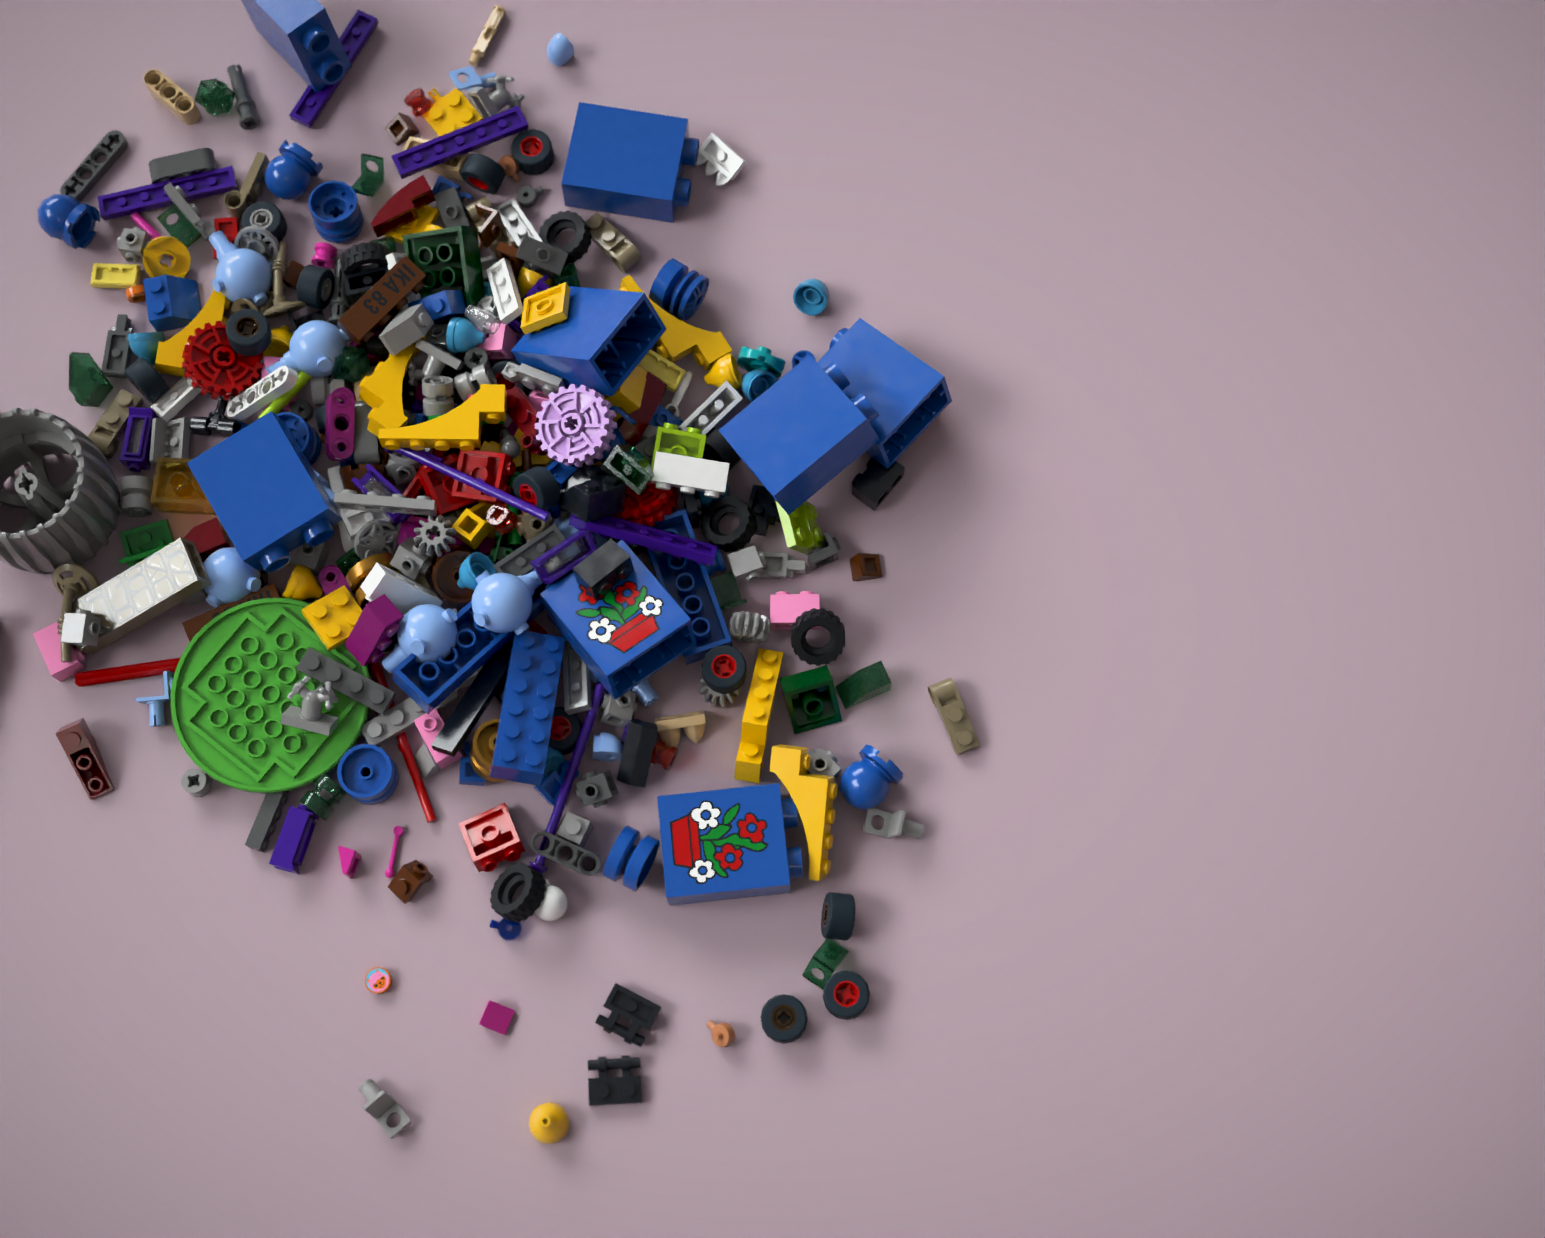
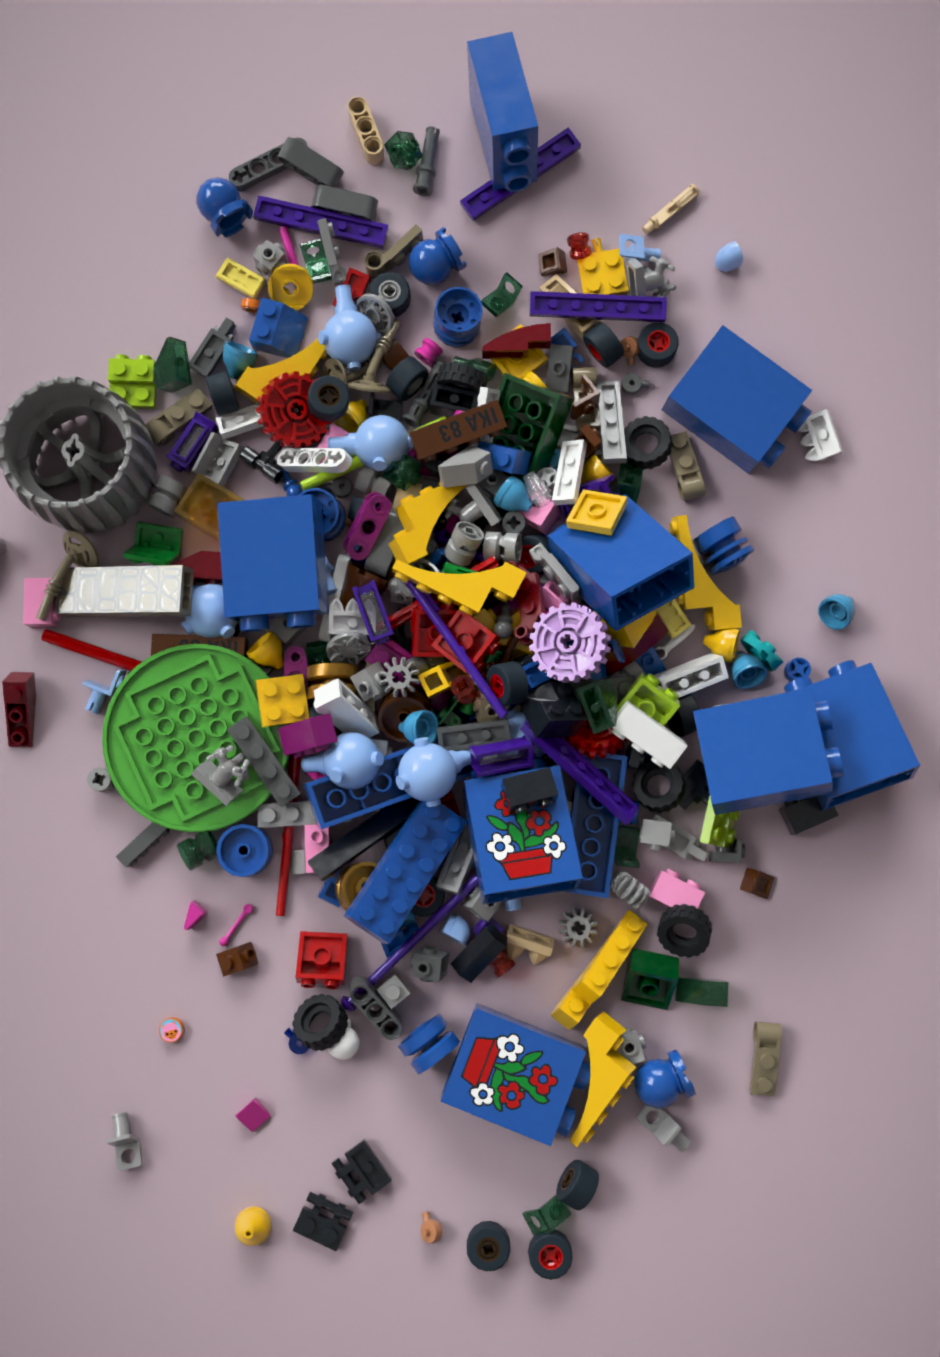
camera: 25 degrees right, 10 degrees up
(58, 401) = (133, 380): none -> lime plate
(81, 628) = (64, 599): brick -> none
(131, 147) = (309, 163): none -> dark grey beam
(294, 839) = (157, 874): dark purple window -> none
(376, 502) = (363, 621): light grey plate -> none
(541, 255) = (617, 455): dark grey plate -> none
(722, 661) = (597, 922): black wheel -> none

